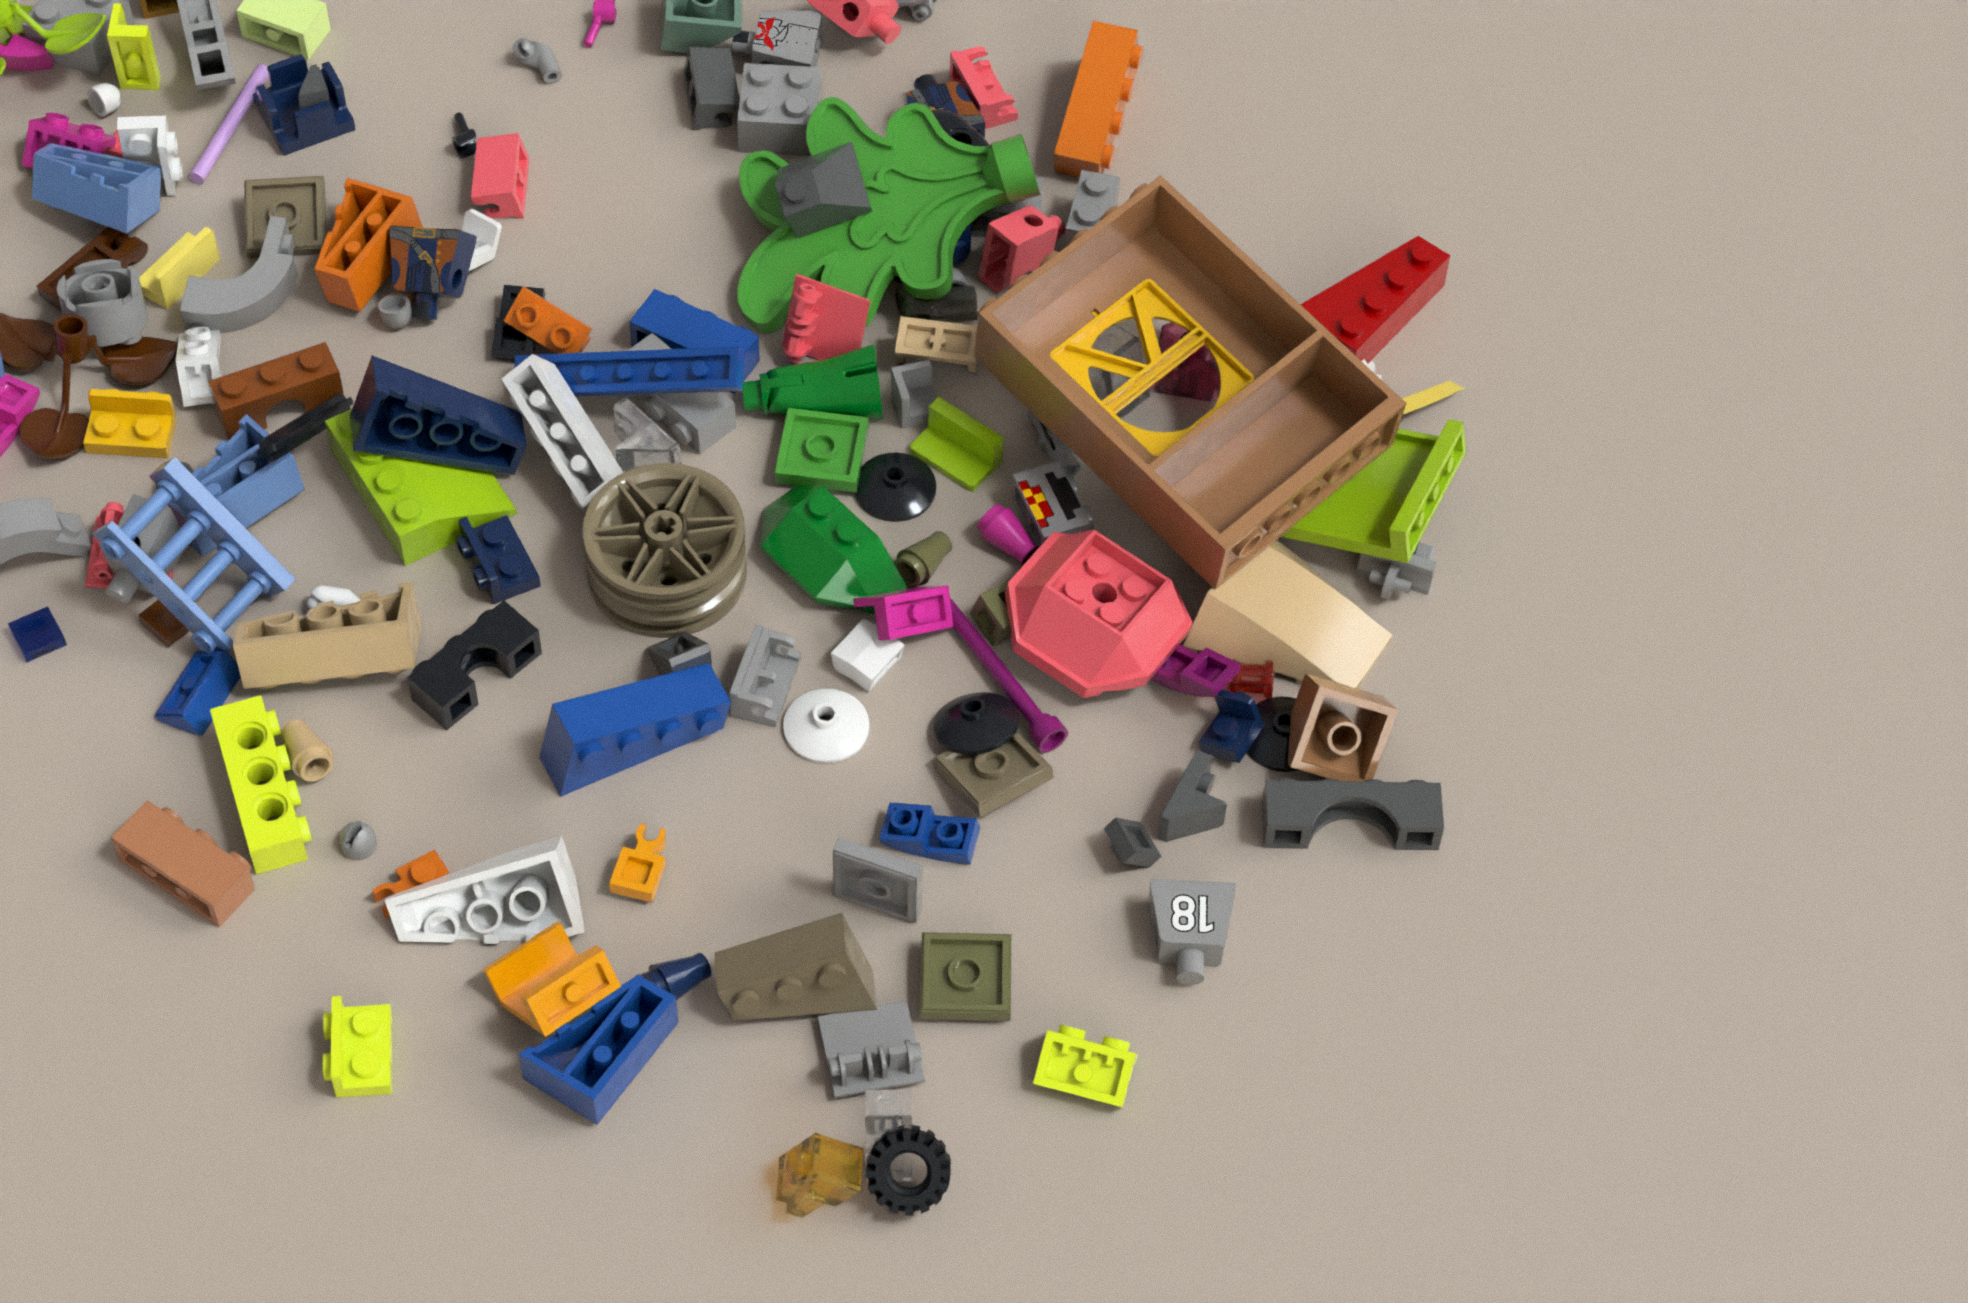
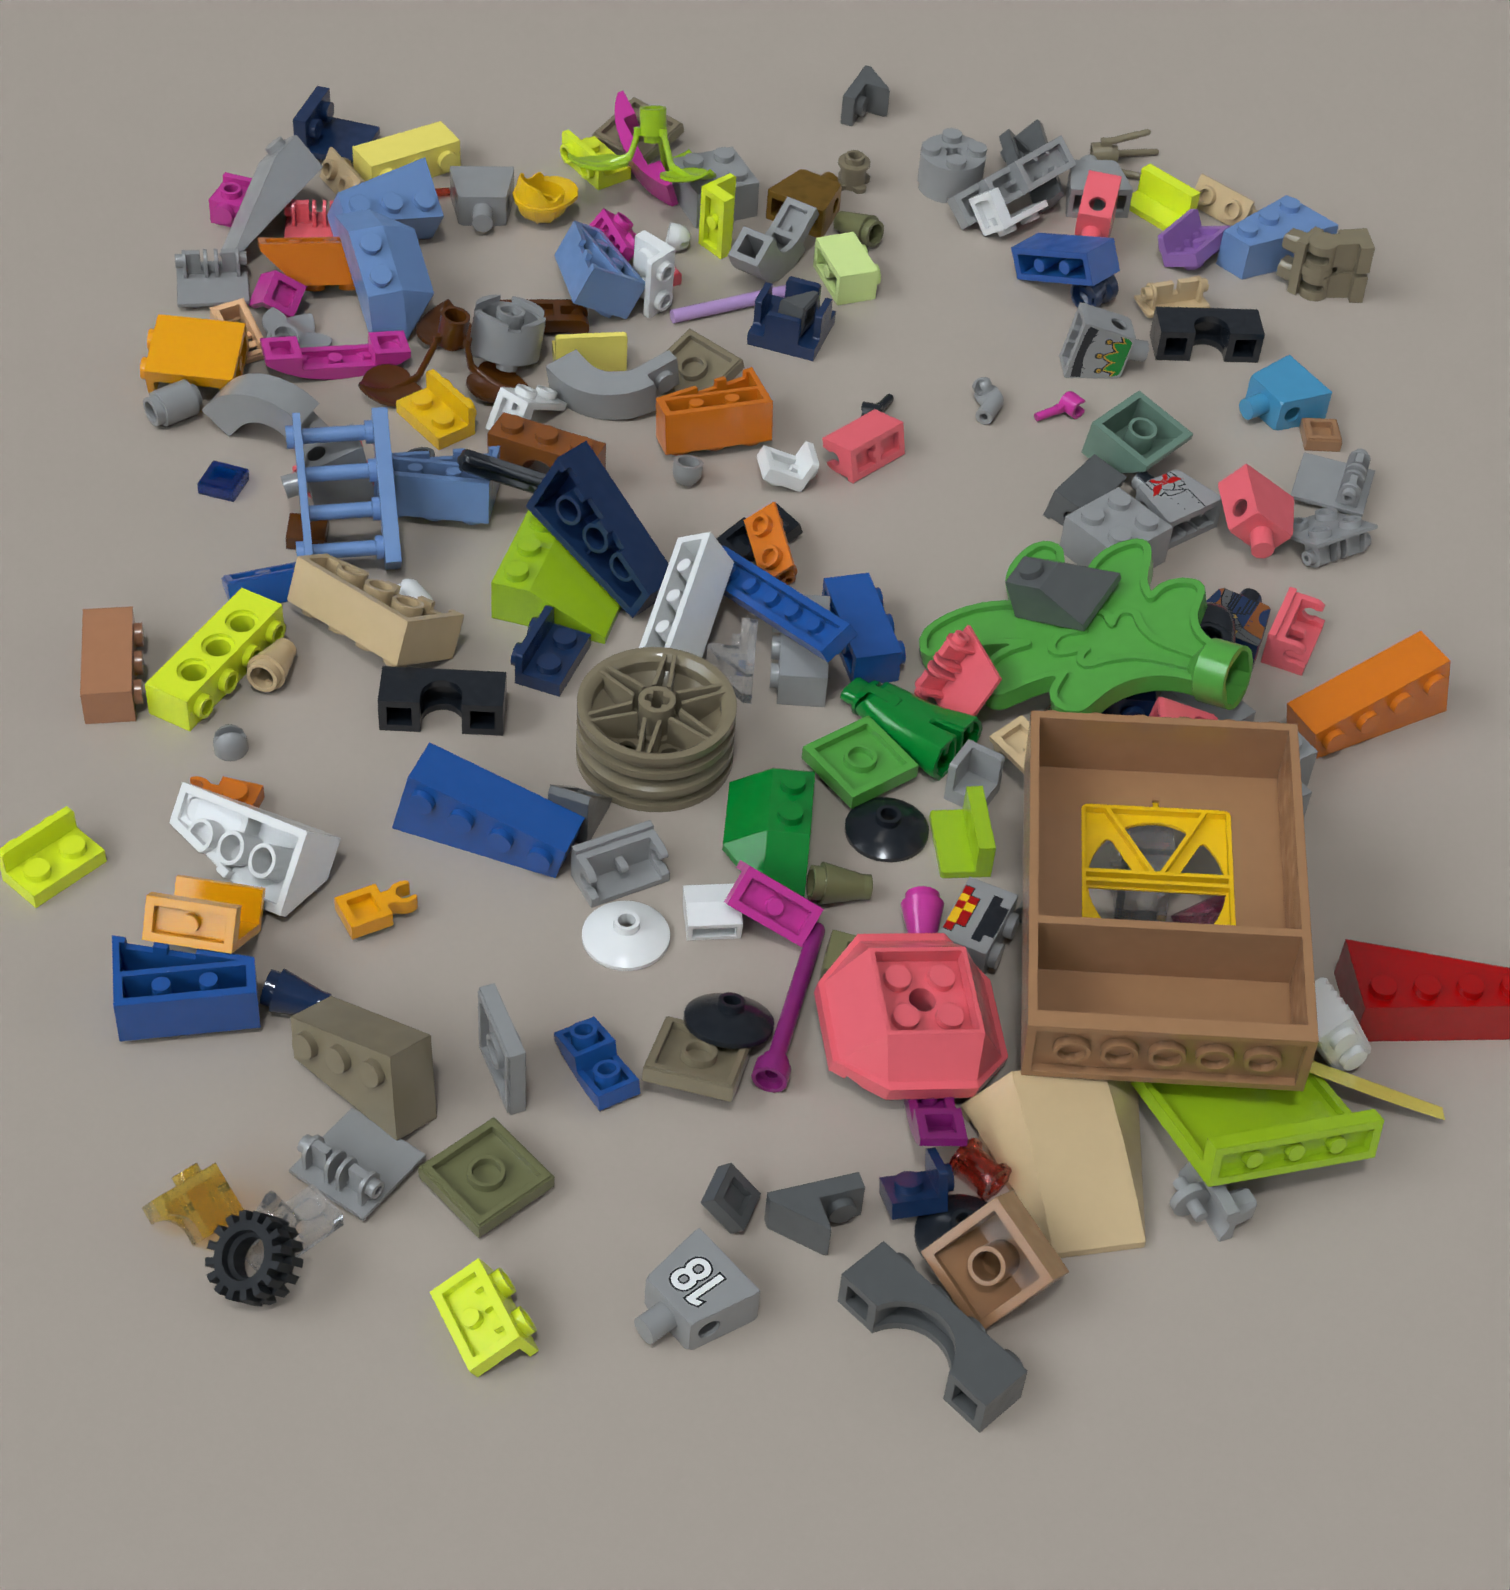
camera: 45 degrees right, 10 degrees down
(430, 265) = (737, 453): torso -> none

